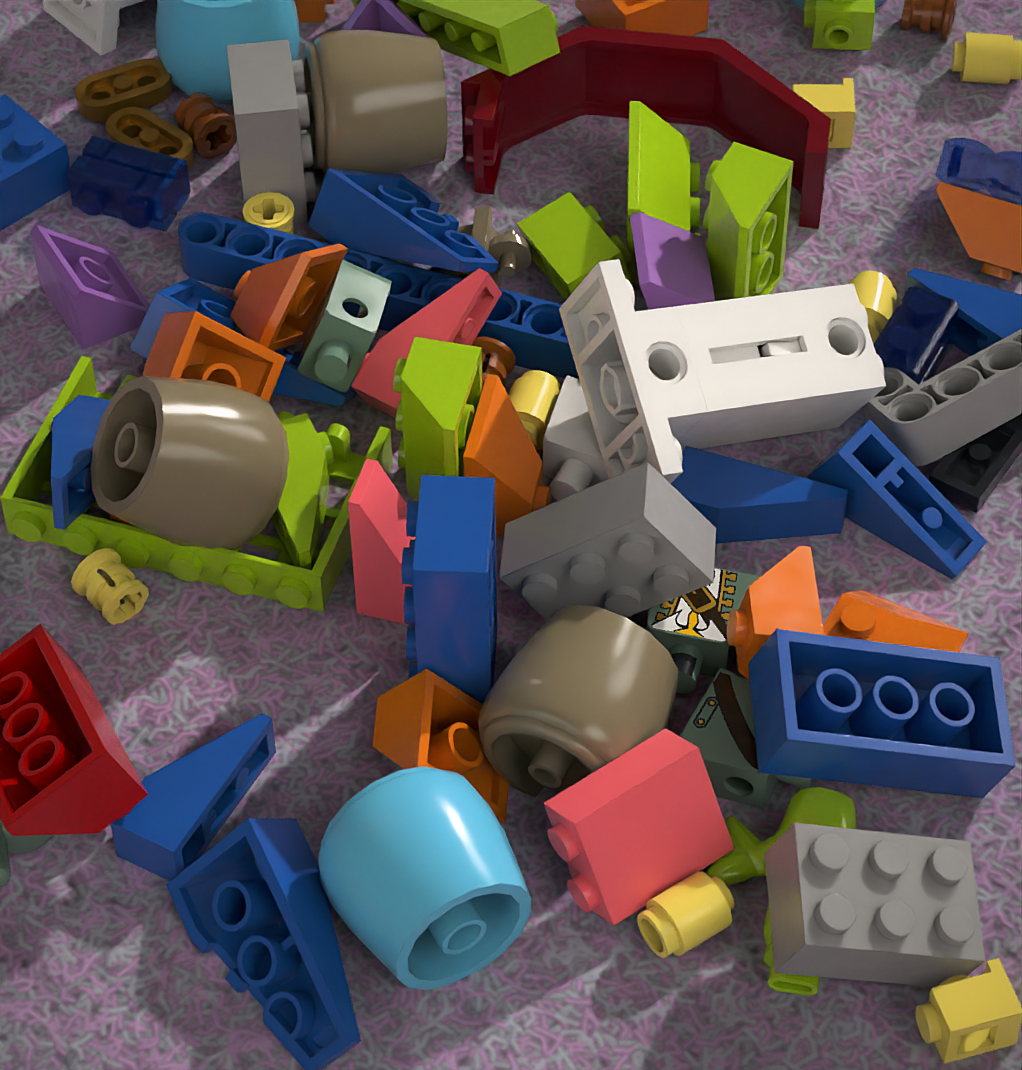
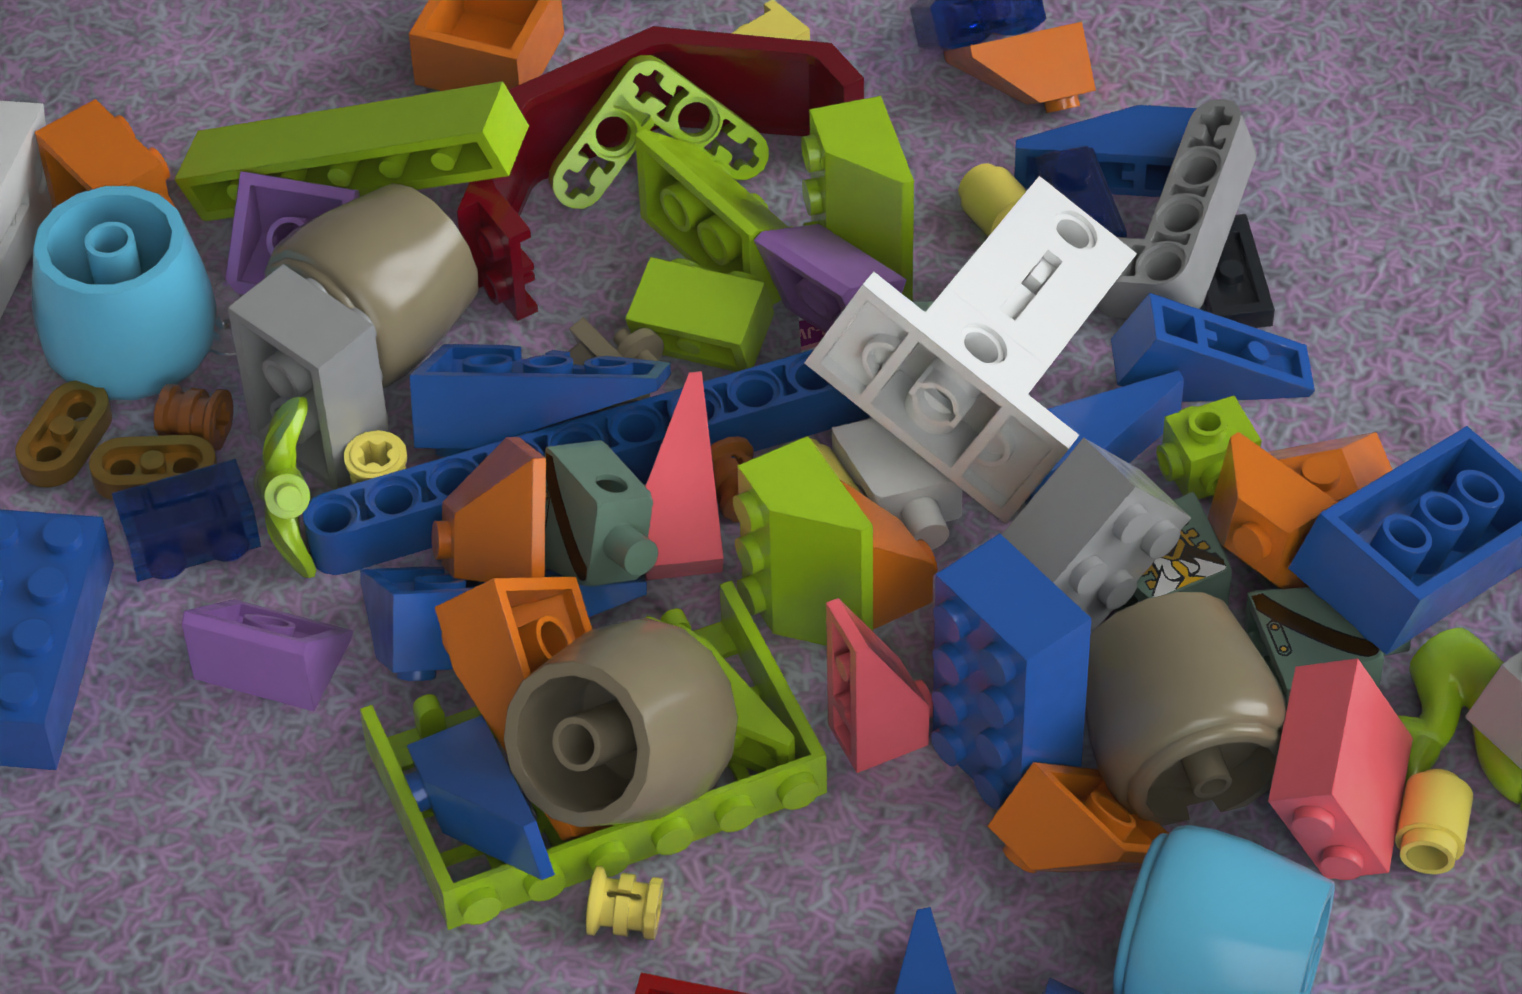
camera: 40 degrees left, 0 degrees up
(189, 194) = (283, 486): none -> lime plant
(667, 98) = (641, 114): none -> lime beam
(832, 548) = (1197, 444): none -> lime brick

